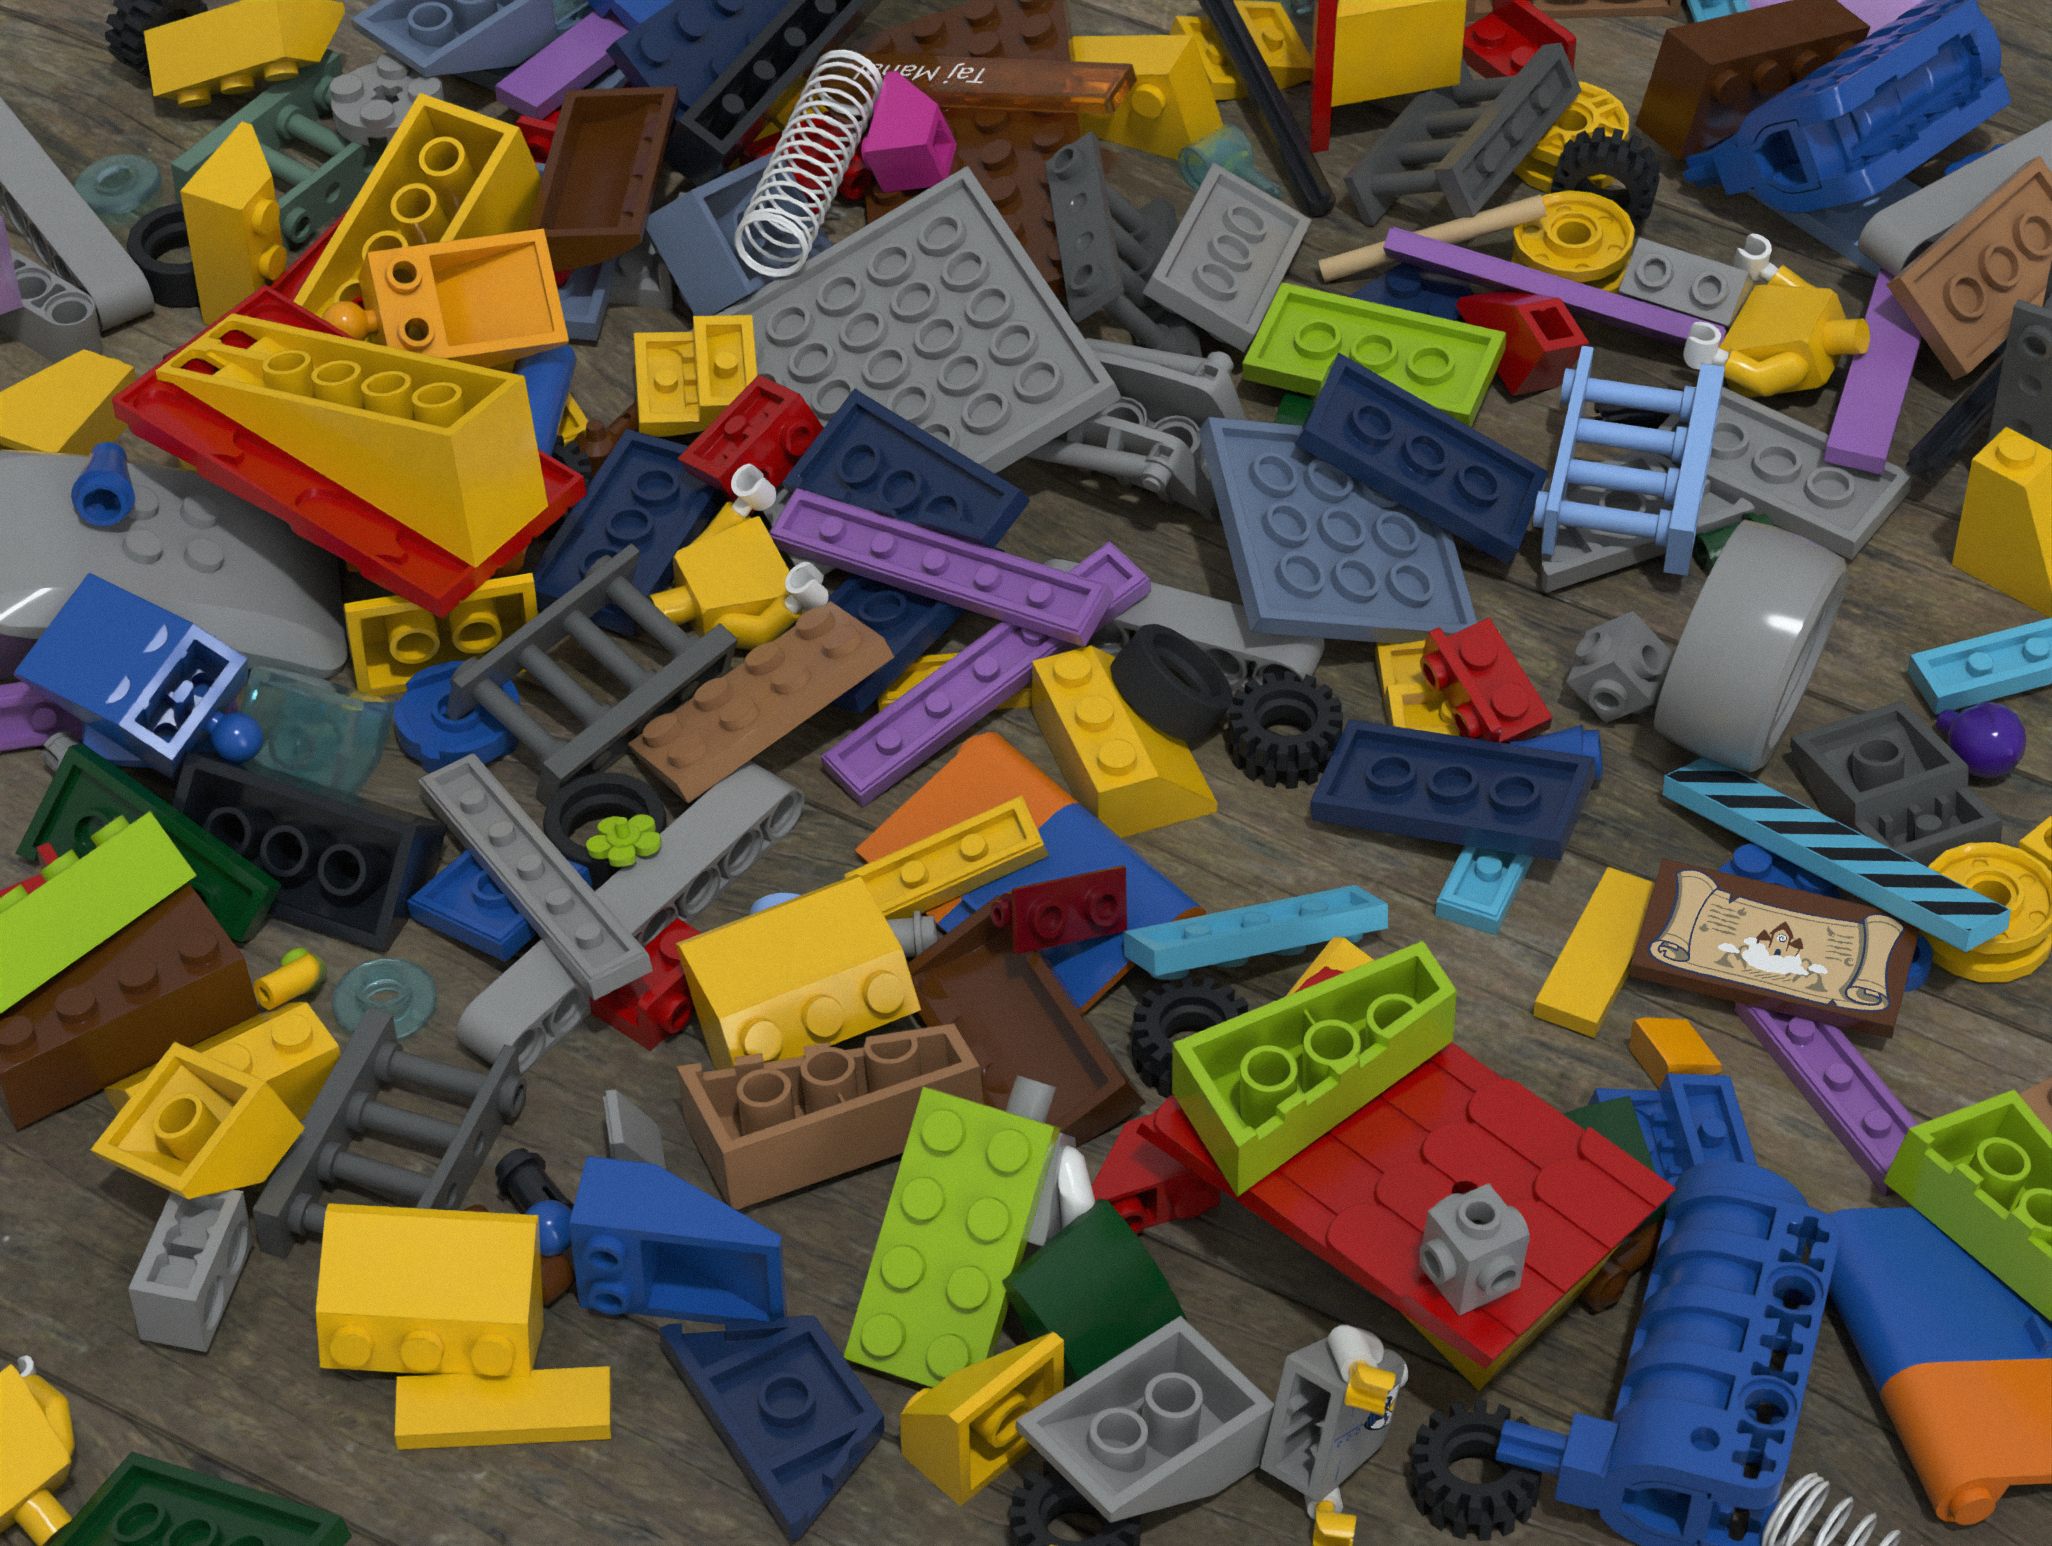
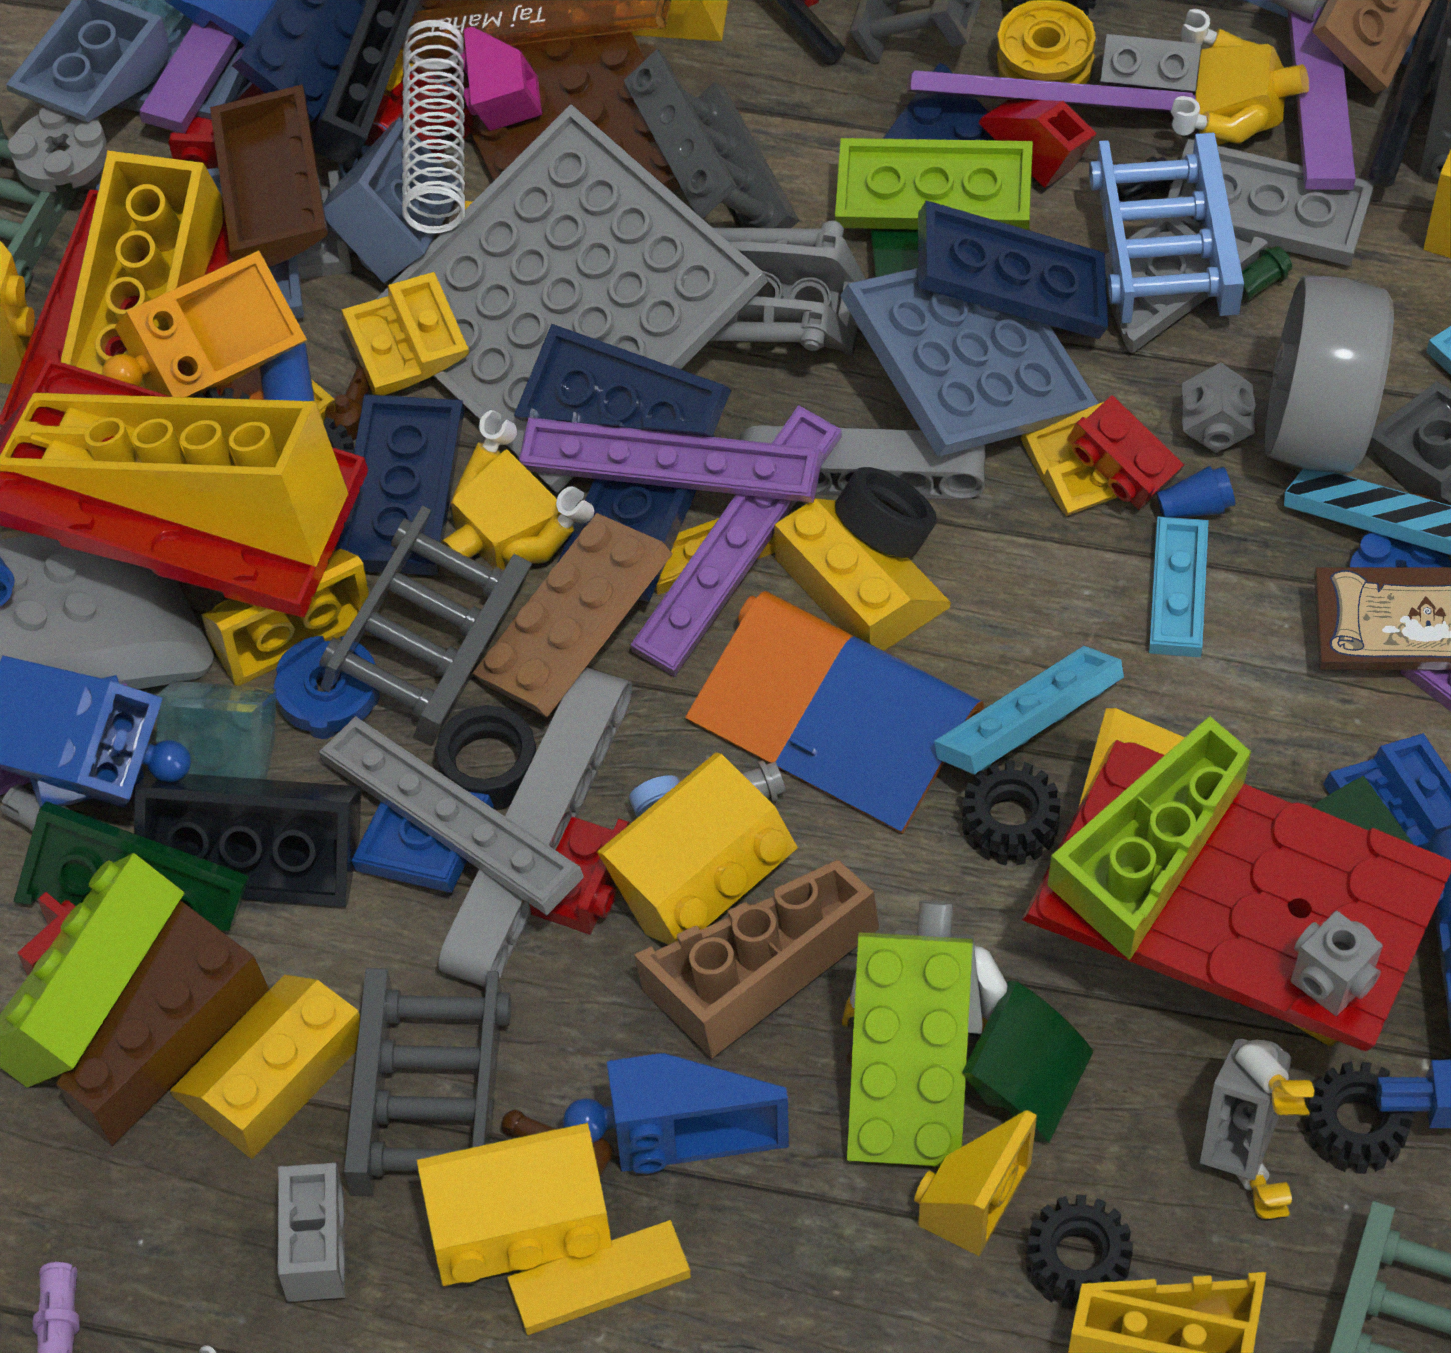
camera: 15 degrees left, 10 degrees up
(199, 1127) = (279, 1120): yellow slope -> none
(299, 975) = (291, 952): yellow arm -> none
(409, 1008) = (359, 925): clear light blue piece -> none
(524, 1179) = (549, 1083): black pin -> none
(623, 839) = (512, 765): lime plant -> none
(631, 1132) = (611, 1021): light grey slope -> none
(761, 428) = (478, 377): red bracket -> none
(781, 1407) = (816, 1216): dark blue wing -> none
(954, 860) = (771, 711): yellow tile -> none
(1022, 1024) = (853, 816): reddish brown slope -> none
(1064, 909) = (884, 738): dark red hinge -> none
(1149, 1184) = (1021, 947): red slope -> none
(1153, 1425) = (1116, 1158): light grey slope -> none
(1227, 257) = (787, 124): light grey plate -> none
(1228, 149) = (747, 38): clear light blue axle -> none
(1284, 704) = (981, 549): black tyre -> none
(1449, 232) = (943, 63): tan bar -> none
(1454, 789) = (1132, 546): dark blue plate -> none
(1596, 955) = (1287, 653): yellow tile -> none
(1670, 1047) = (1371, 723): light orange slope -> none

